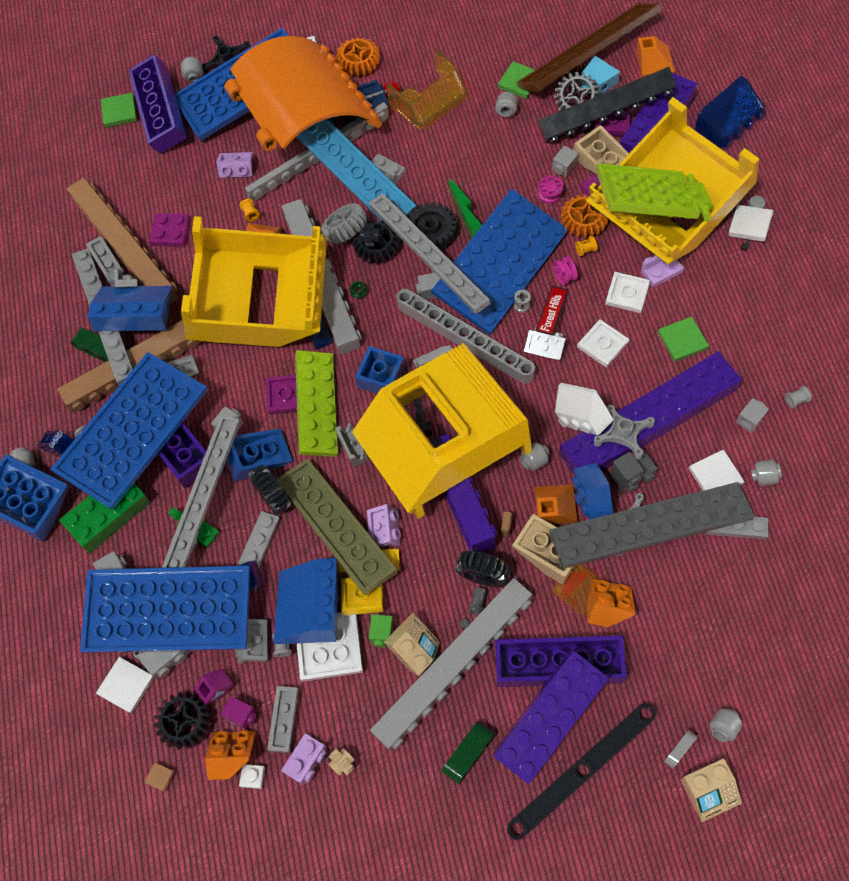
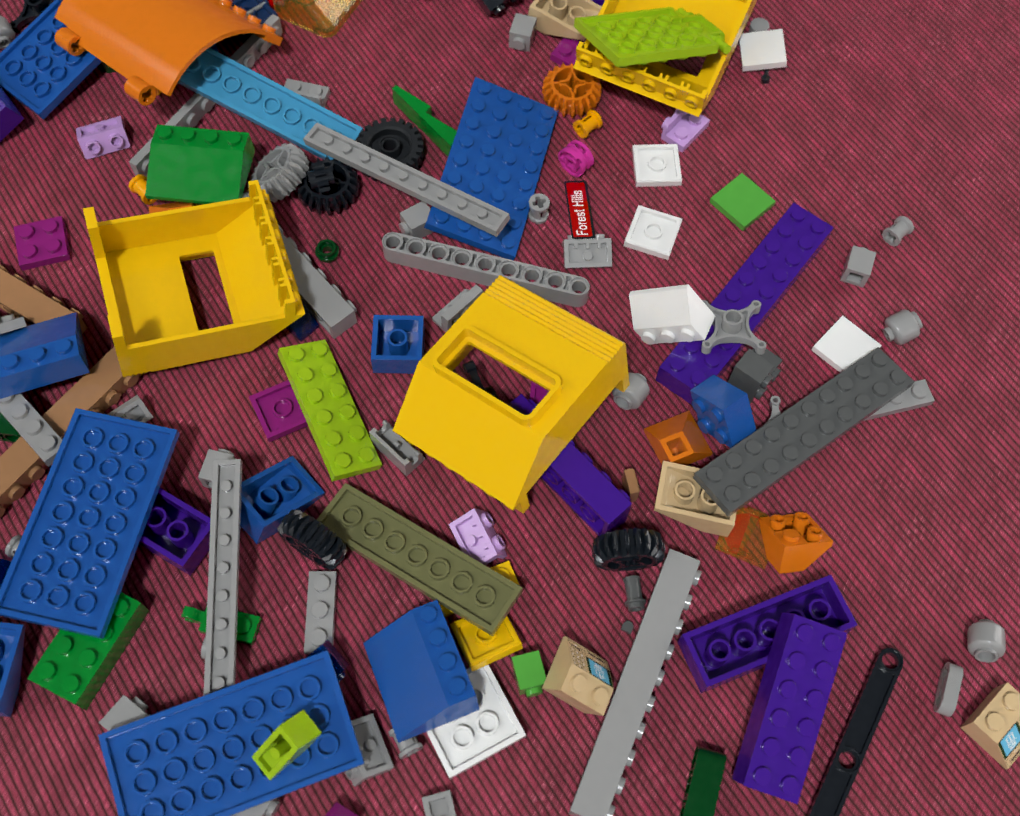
camera: 30 degrees left, 0 degrees up
(199, 616) = (286, 744): none -> lime slope
(289, 203) = (198, 164): none -> green slope
(550, 191) = (518, 71): dark pink wheel -> none

